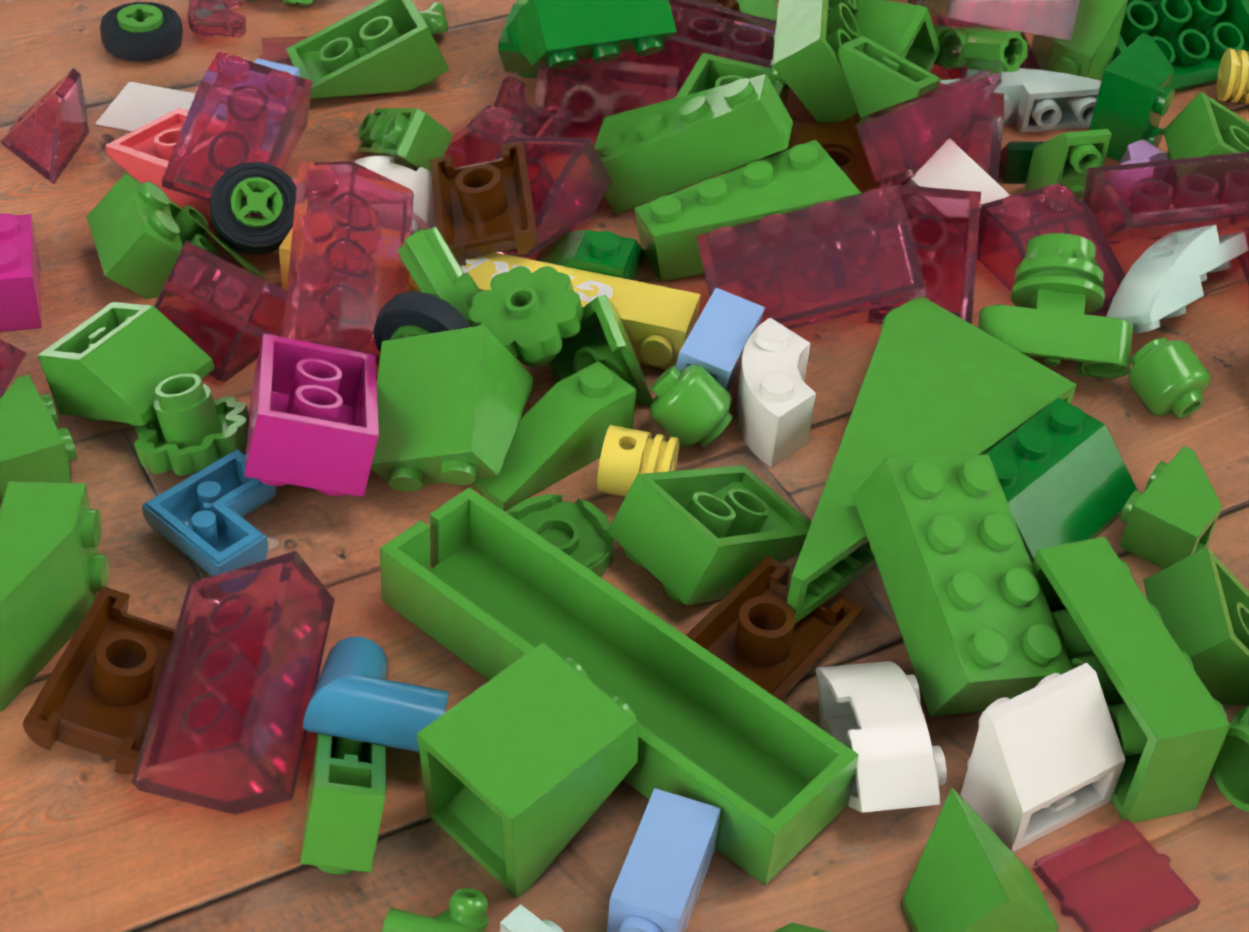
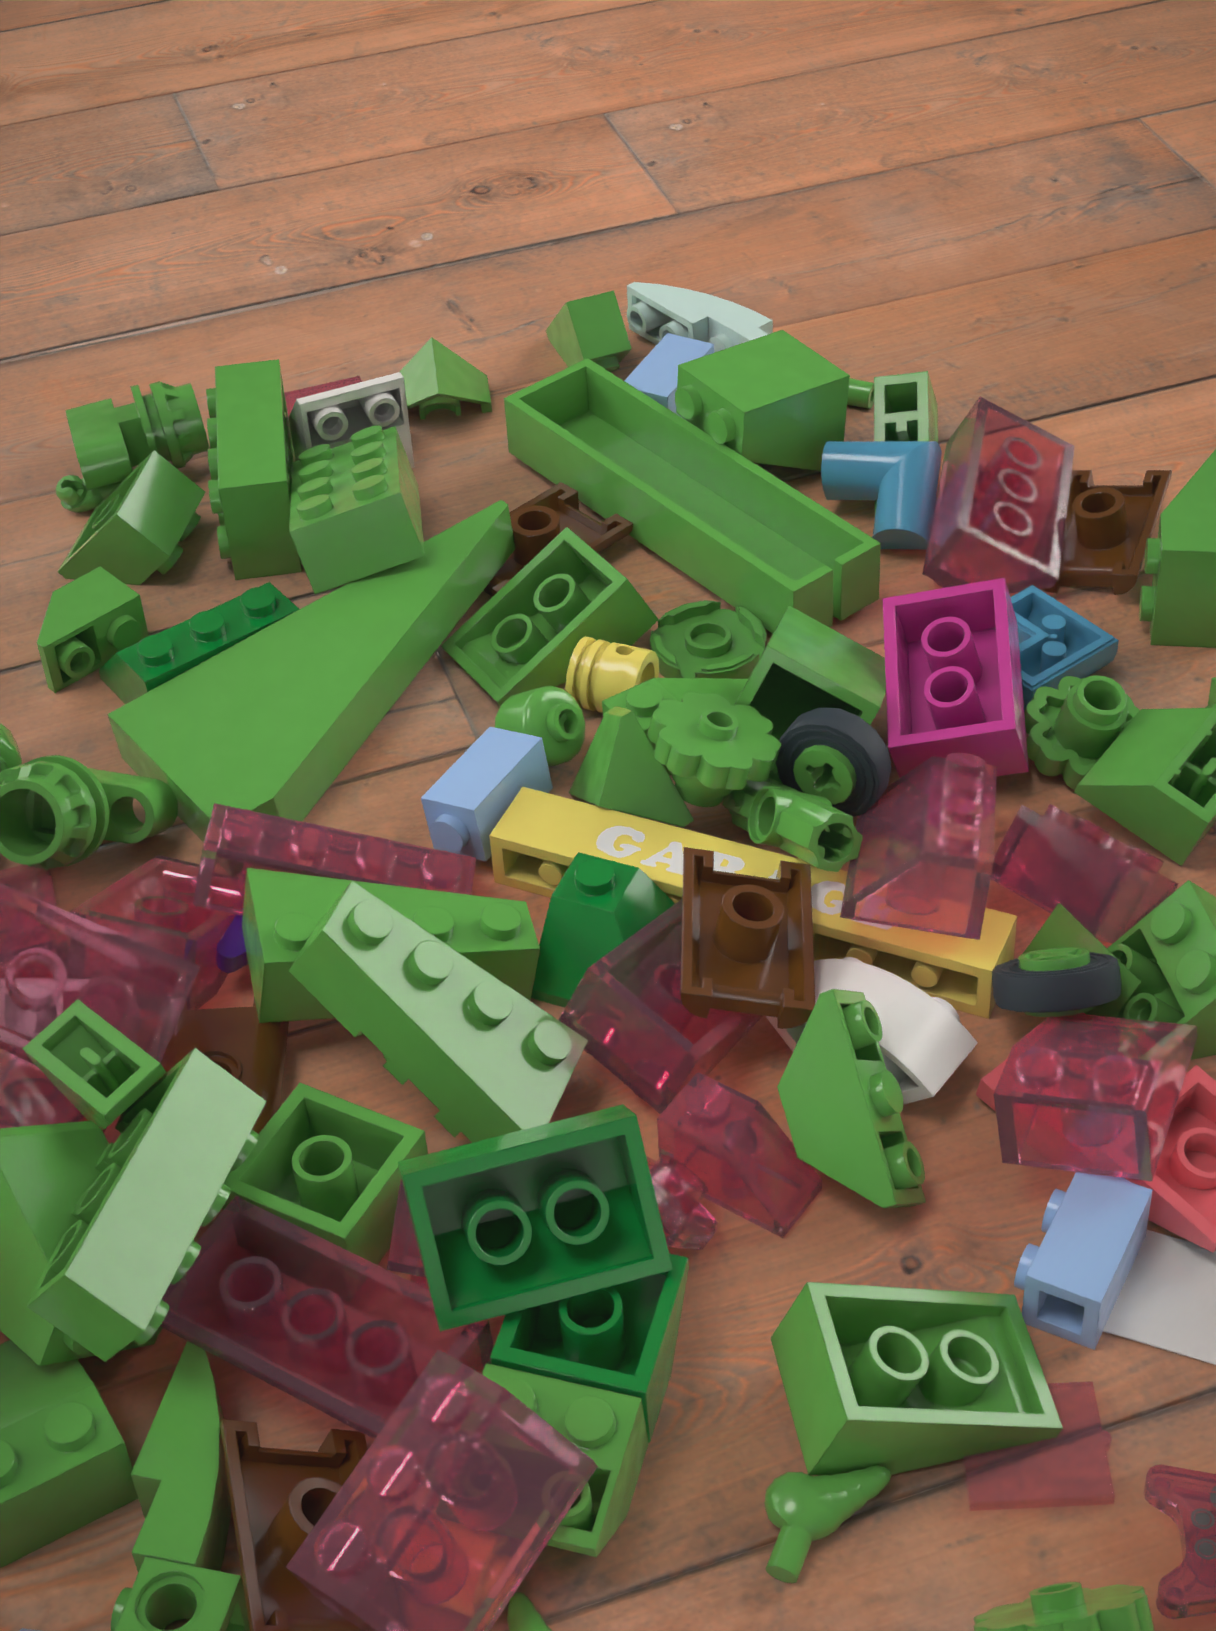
camera: 165 degrees left, 0 degrees up
(772, 395) = (441, 730): white brick -> none
(881, 718) = (469, 461): white brick -> none

